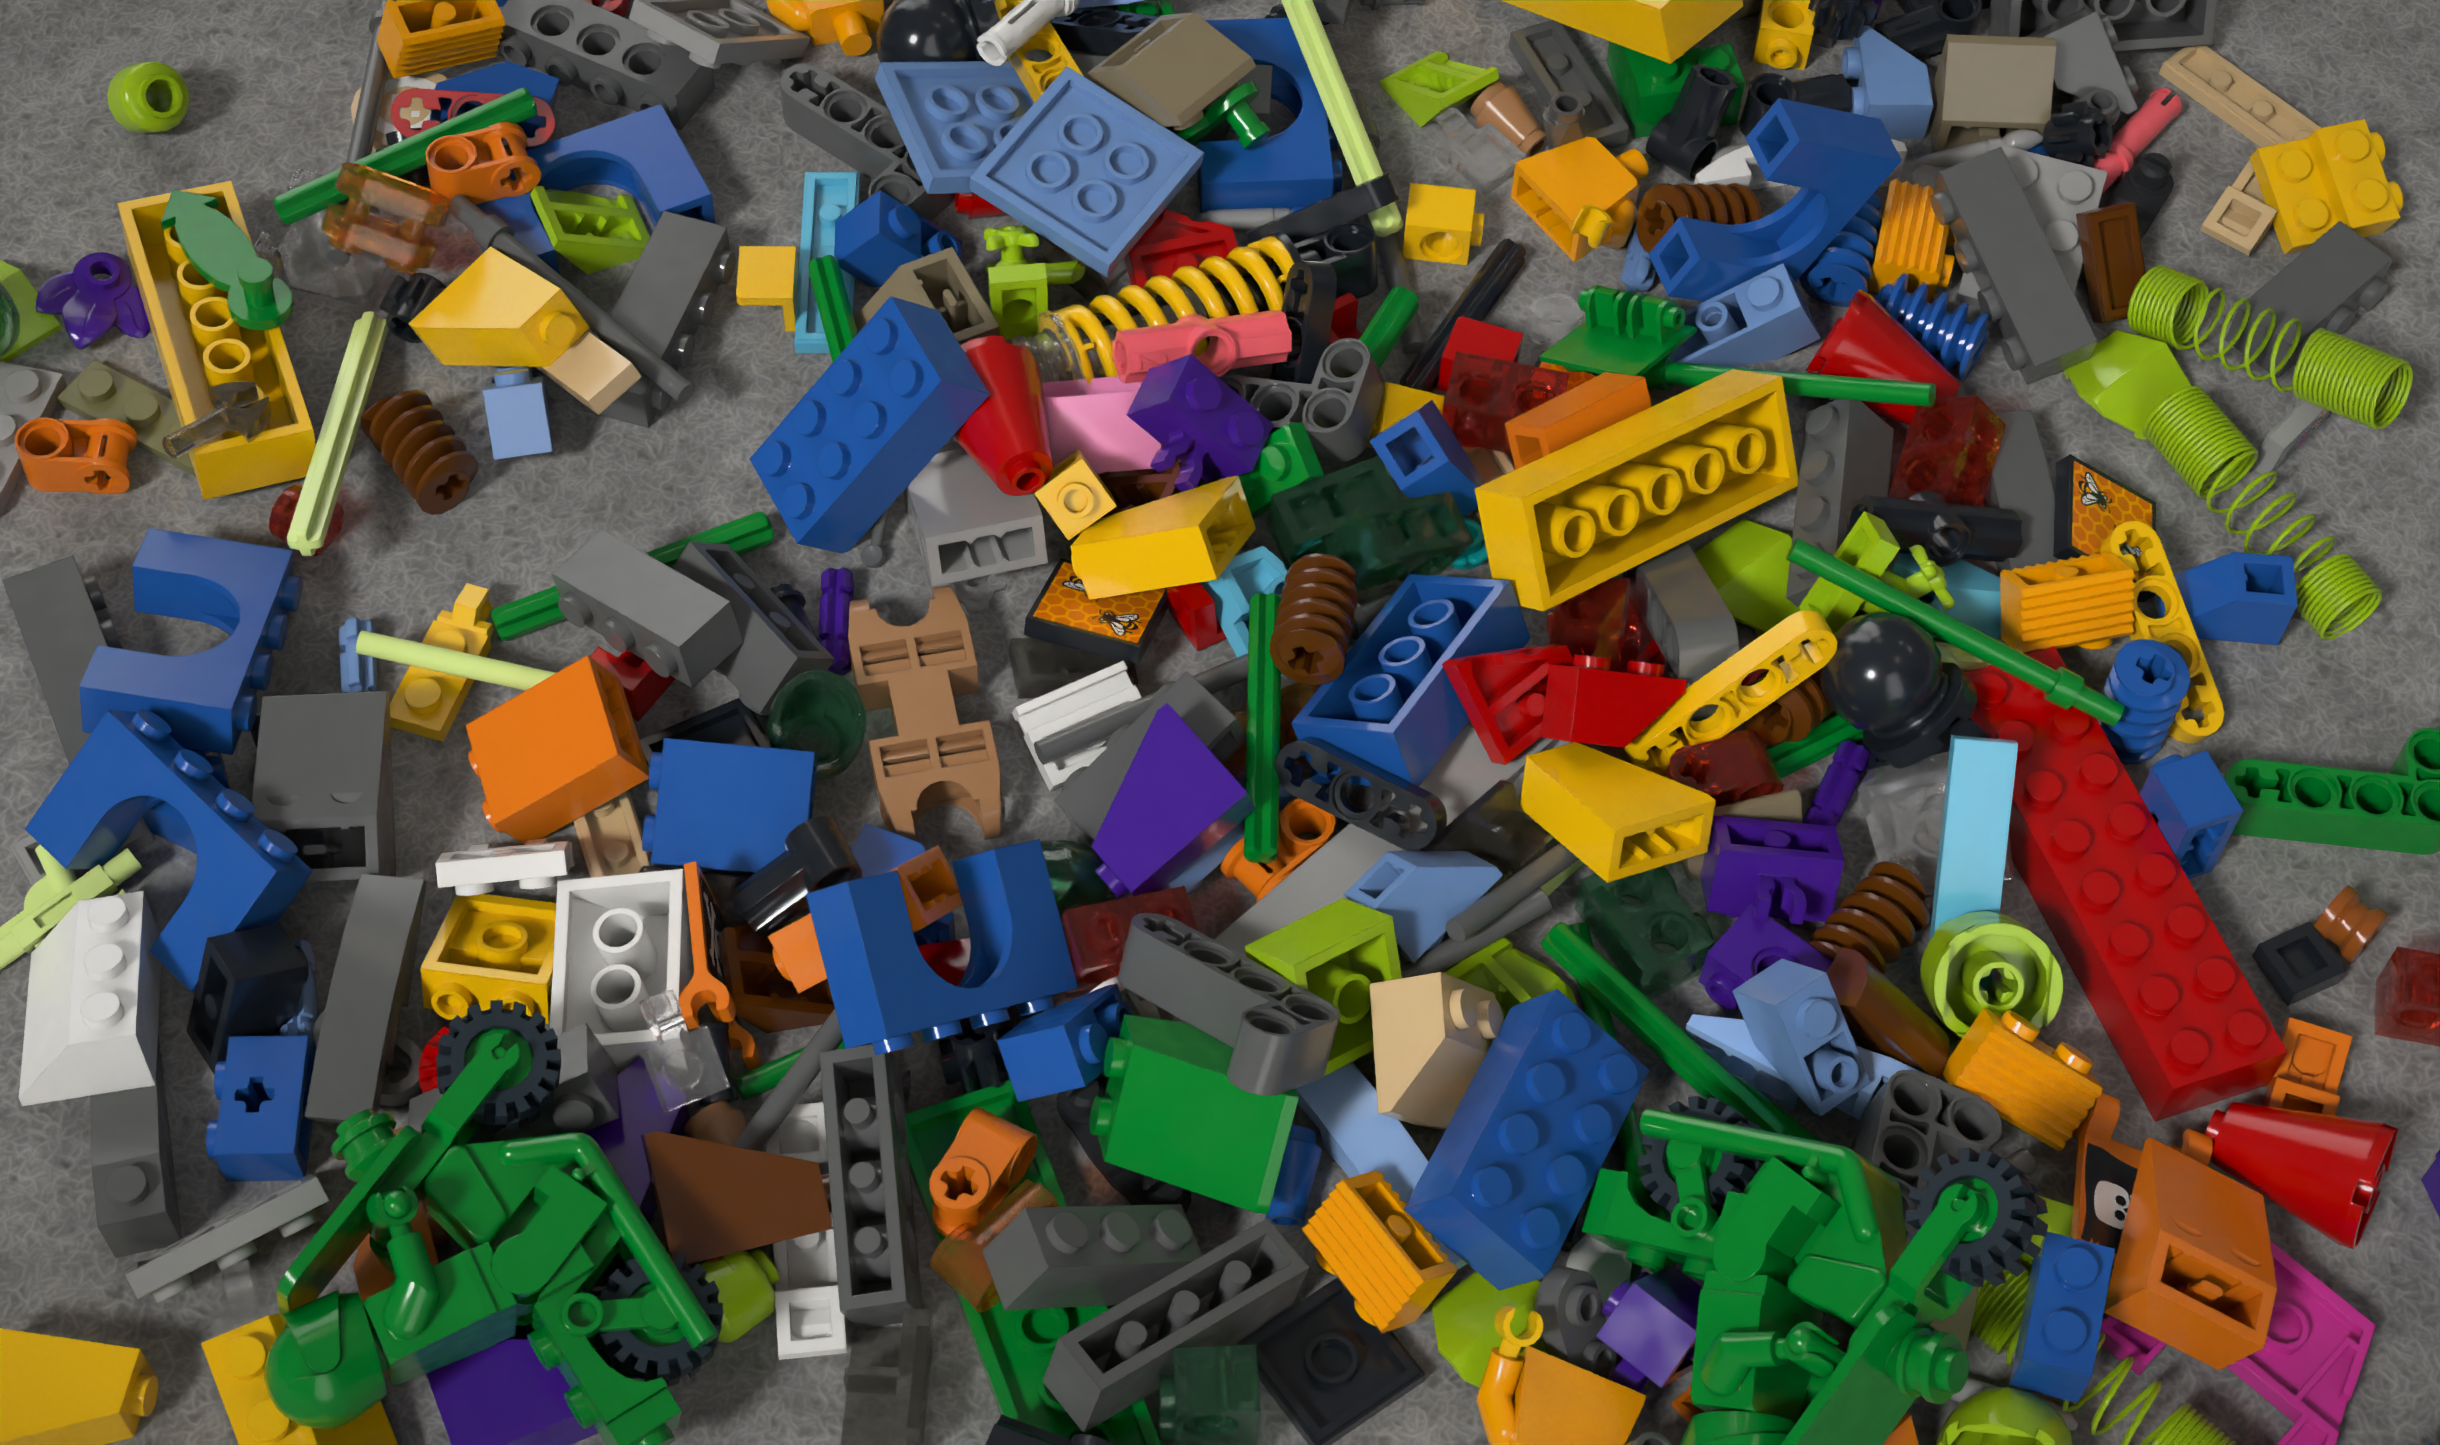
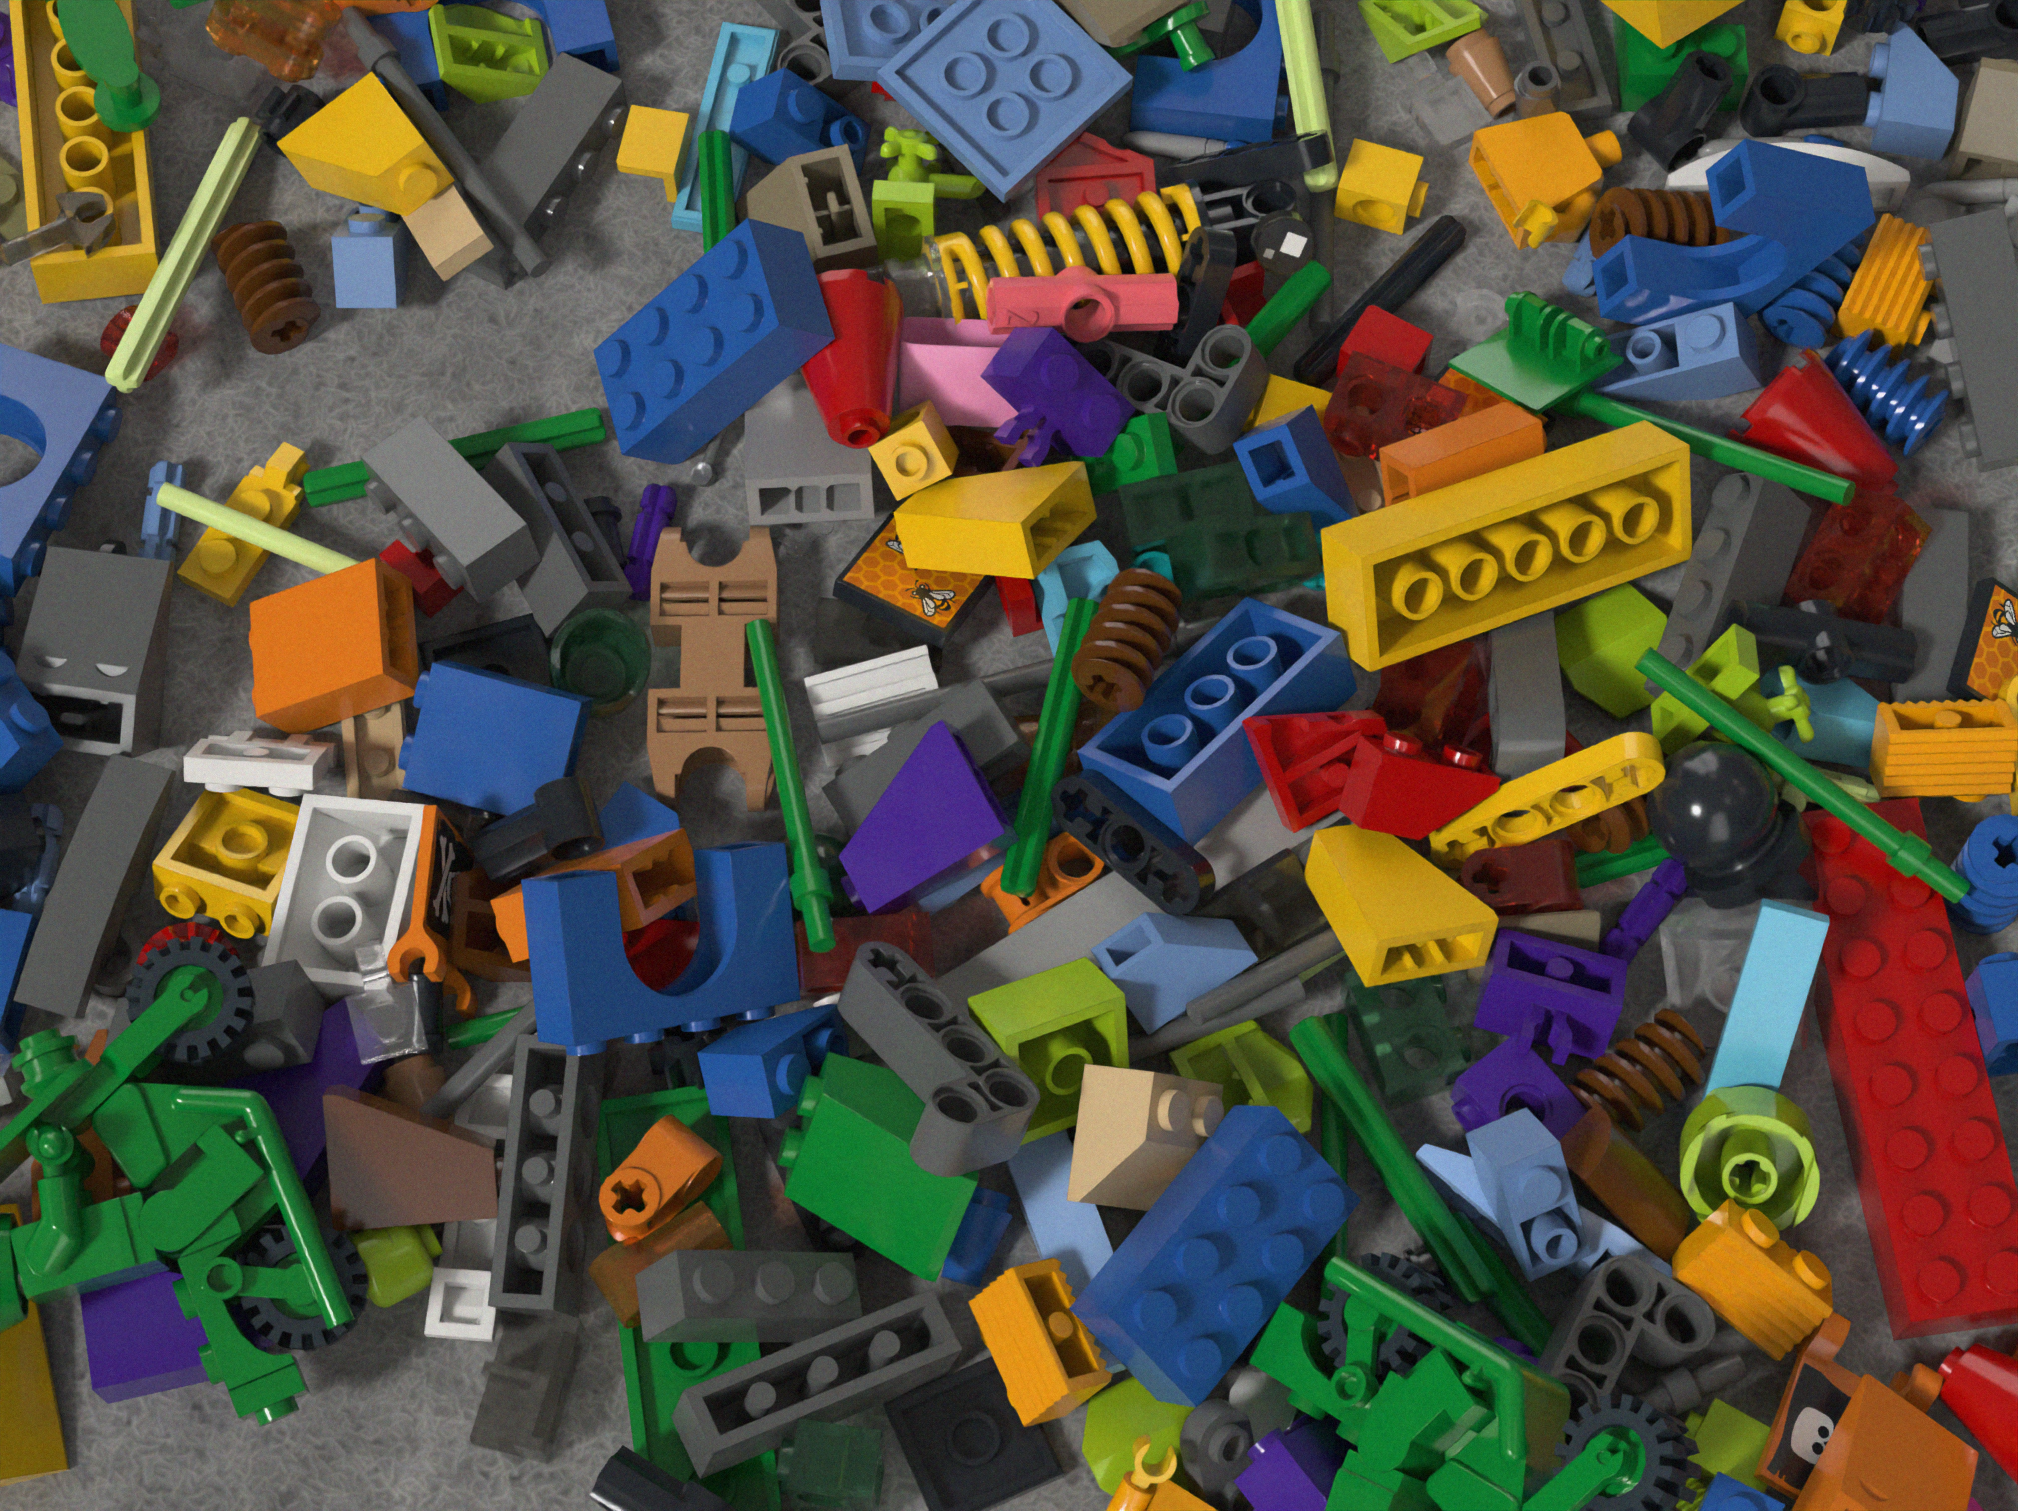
camera: 15 degrees right, 10 degrees up
(1068, 871) = (810, 883): none -> green bar
(1370, 272) = (1282, 242): none -> tile

